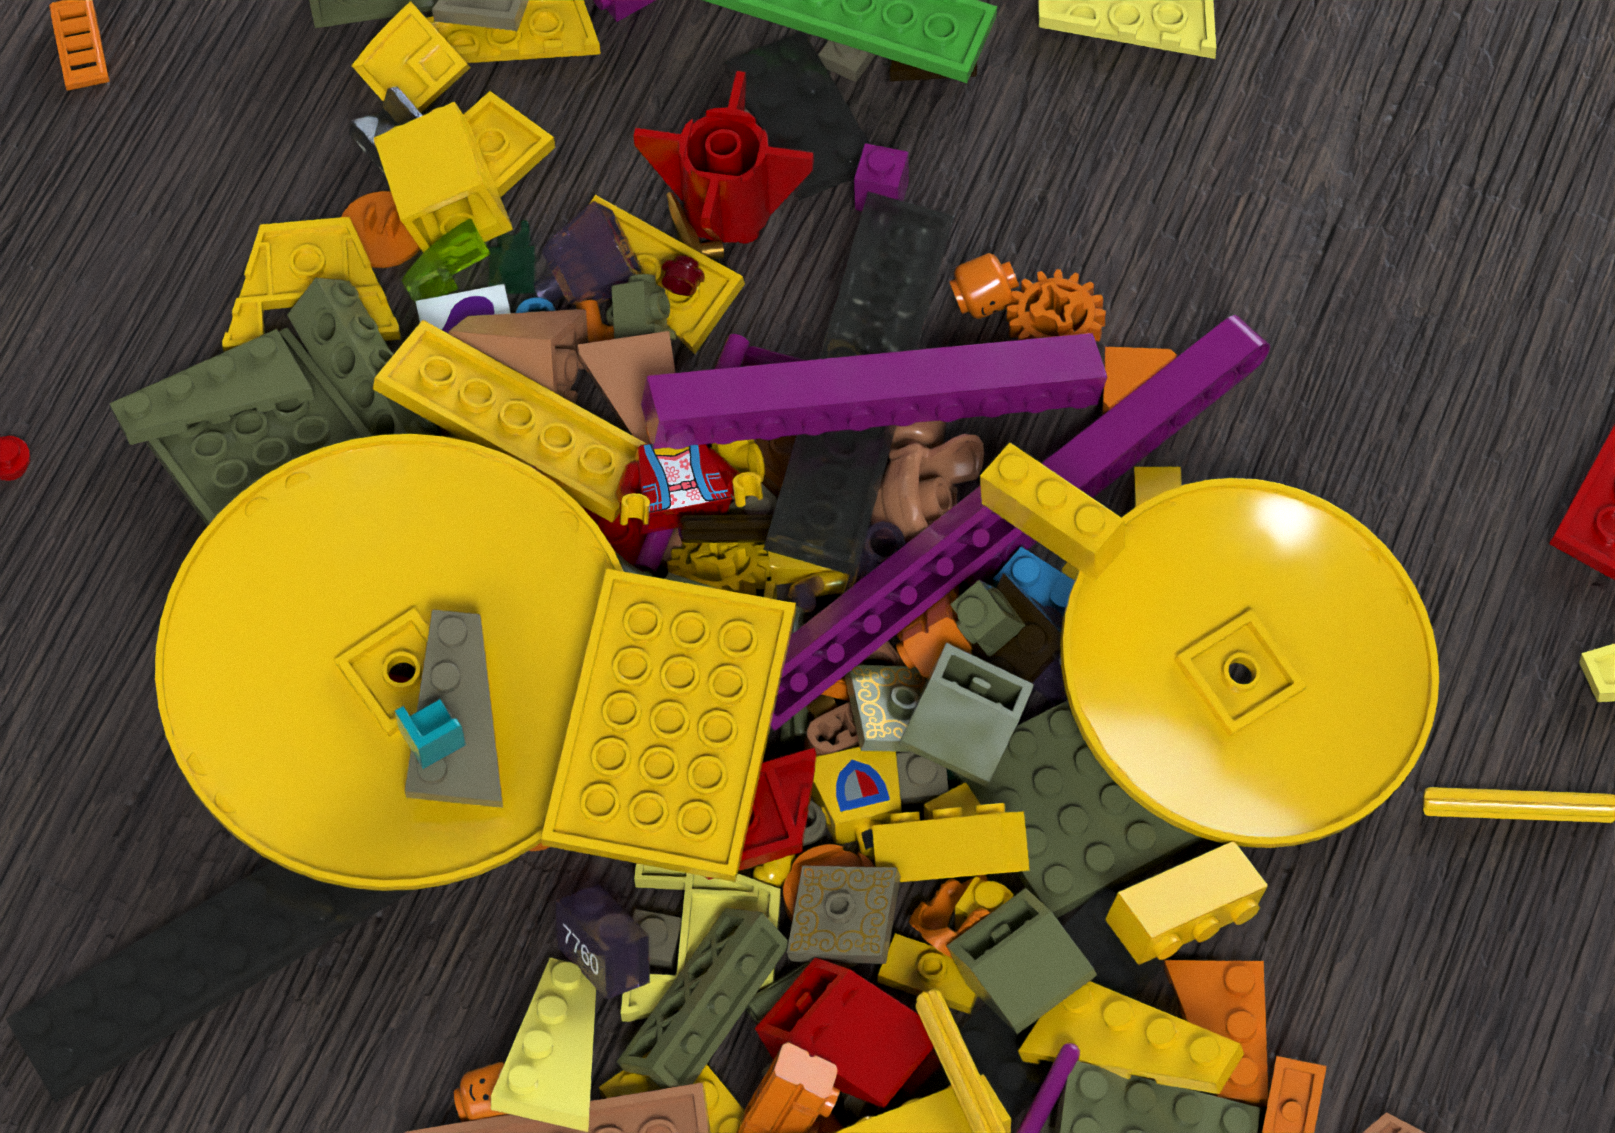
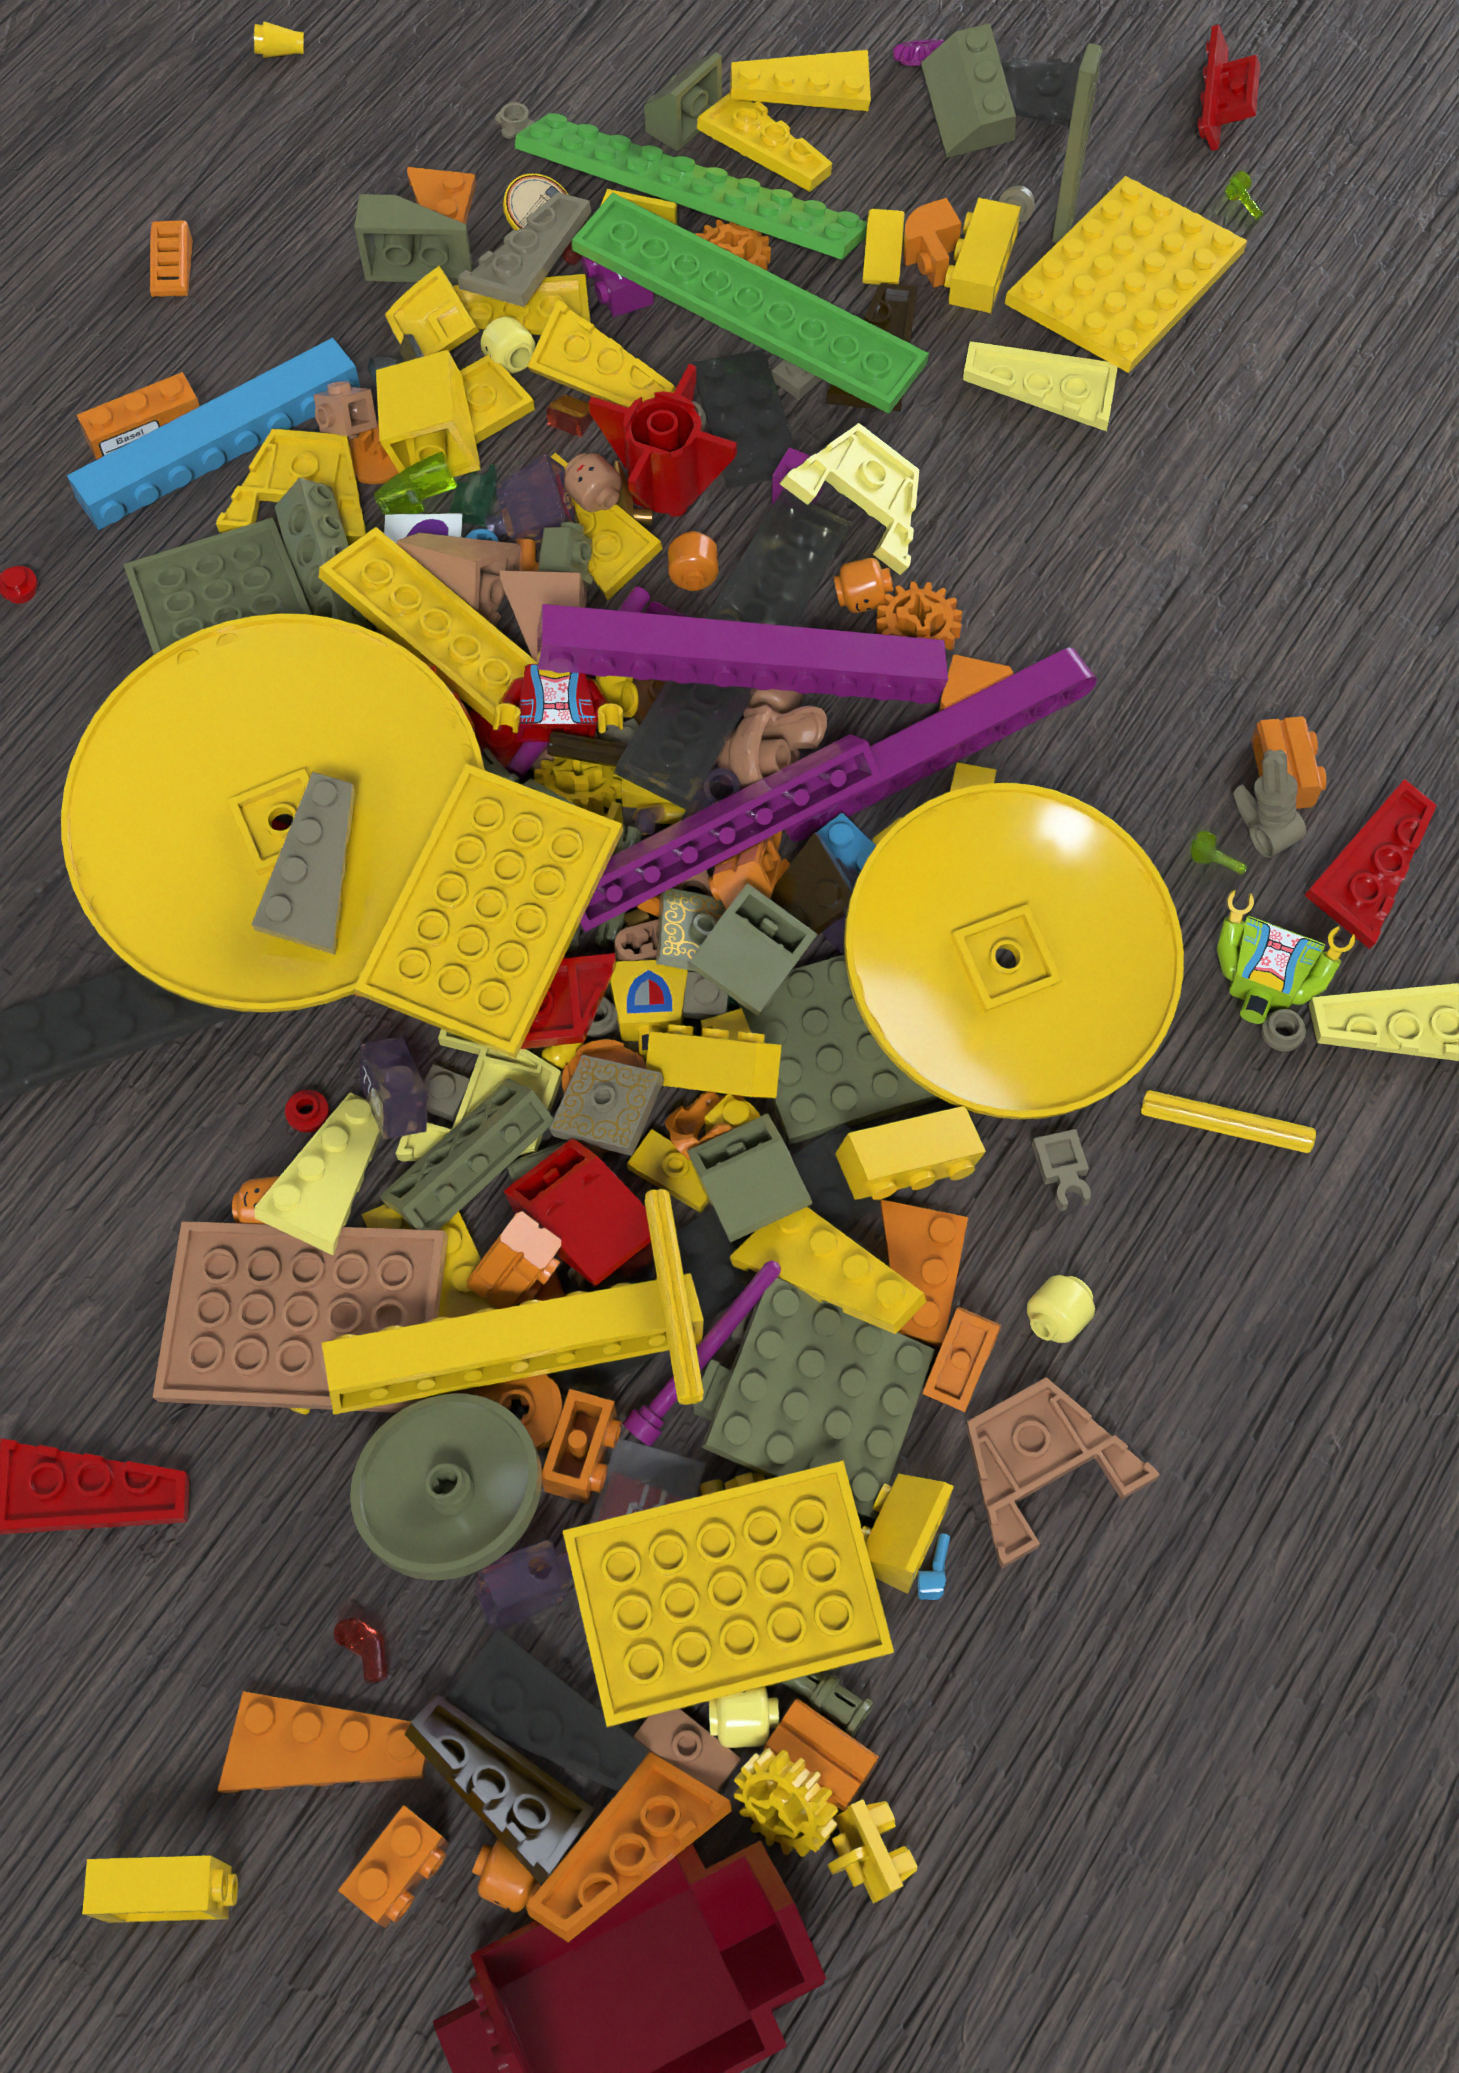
camera: 10 degrees right, 5 degrees up
(103, 242) = (136, 414): none -> orange brick
(191, 242) = (208, 435): none -> dark azure brick
(231, 382) = (209, 553): olive wing -> none
(340, 188) = (344, 410): none -> nougat brick
(430, 732) = (280, 877): teal panel -> none
(506, 1000) = (307, 1122): none -> red plate
(507, 76) = (508, 343): none -> light yellow head
(599, 146) = (569, 415): none -> clear red slope
(608, 82) = (592, 363): none -> yellow wing
(652, 223) = (592, 482): none -> nougat head
(682, 275) = (608, 531): dark red plate -> none
(784, 290) = (693, 559): none -> orange head
(967, 162) = (870, 477): none -> light yellow wing
(986, 617) = (790, 867): olive brick -> none
(1052, 511) = (865, 784): yellow brick -> none
(1352, 883) = (1063, 1161): none -> dark tan plate
(1387, 1036) = (1060, 1309): none -> light yellow head
(1430, 515) = (1205, 852): none -> clear neon green hand
(1497, 464) = (1273, 816): none -> dark tan piece
(1499, 401) = (1301, 748): none -> orange brick
(1531, 625) = (1271, 964): none -> torso
(1562, 684) = (1283, 1019): none -> dark tan plate

